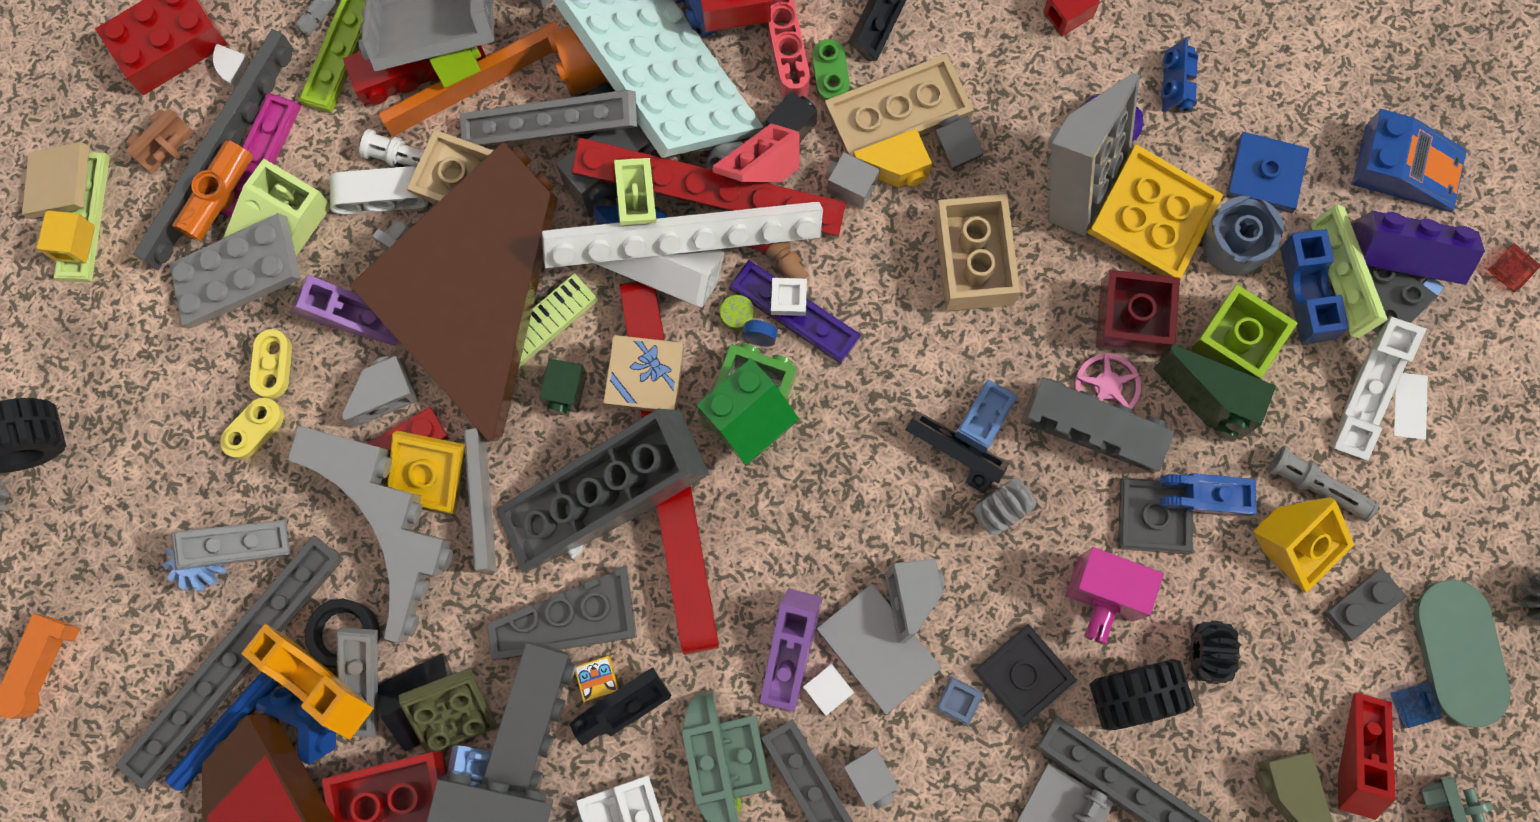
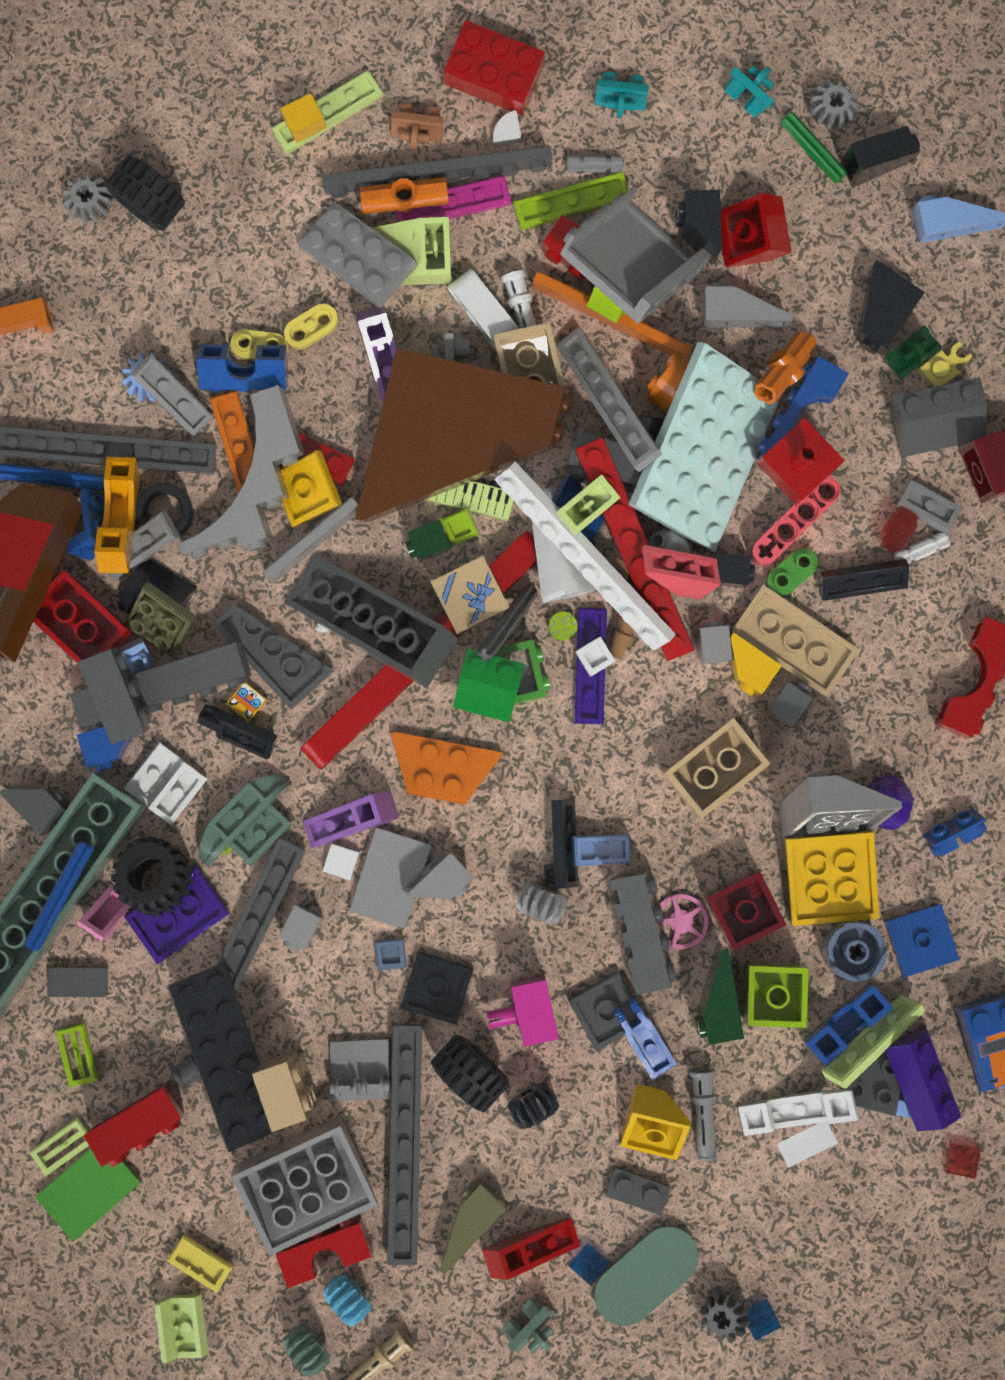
camera: 50 degrees right, 10 degrees up
(55, 180) = (339, 75): tan tile -> none
(246, 482) = (220, 372): none -> blue arch
(320, 511) = (234, 434): none -> orange tile
(379, 391) = (342, 417): light grey slope -> none
(570, 345) = (460, 526): none -> lime tile
(698, 355) = (507, 622): none -> dark grey axle
(759, 333) = (557, 652): blue tile -> none
(798, 522) = (441, 767): none -> orange wing

